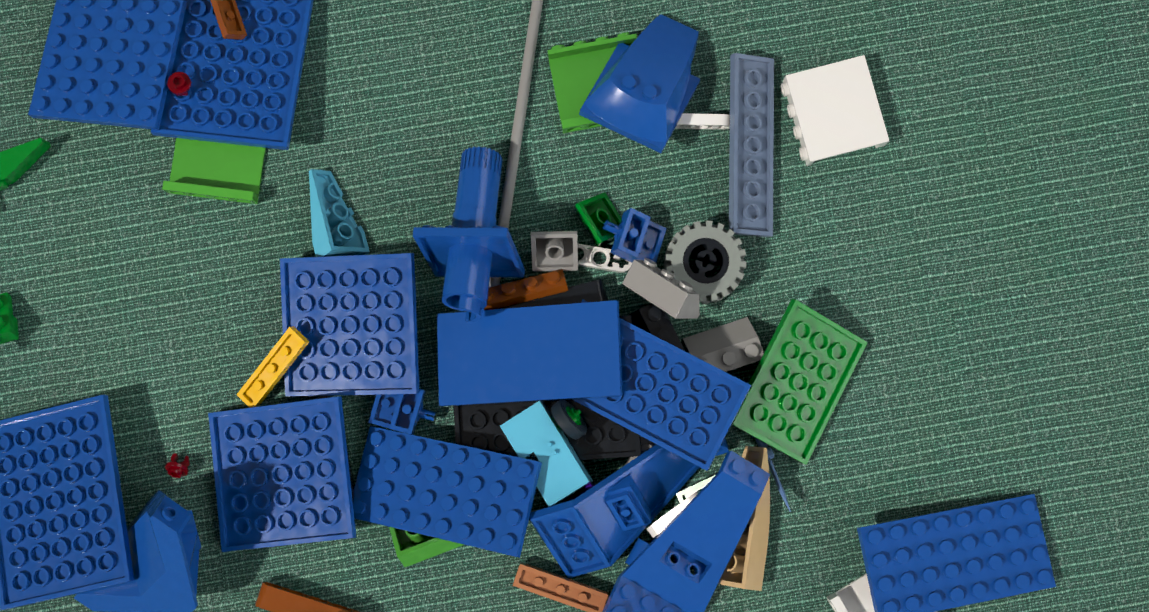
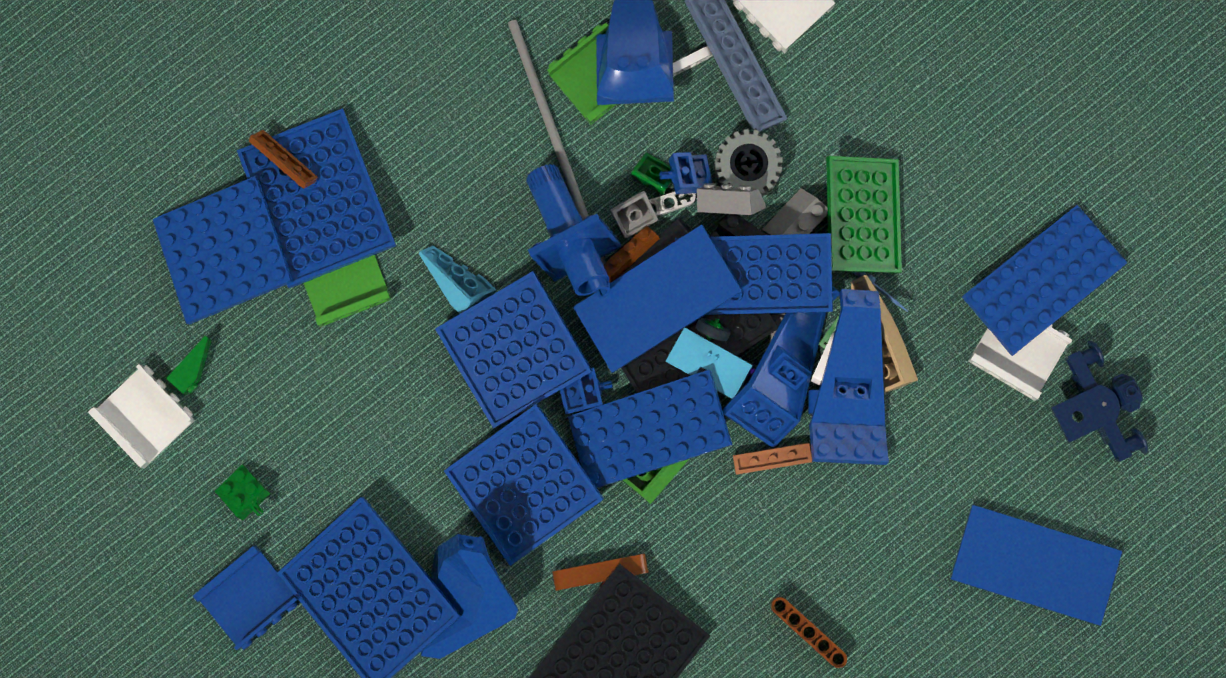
camera: 25 degrees left, 0 degrees up
(177, 469) = (442, 524): dark red plate -> none
(179, 83) = (290, 239): dark red plate -> none
(273, 367) = (473, 411): yellow plate -> none

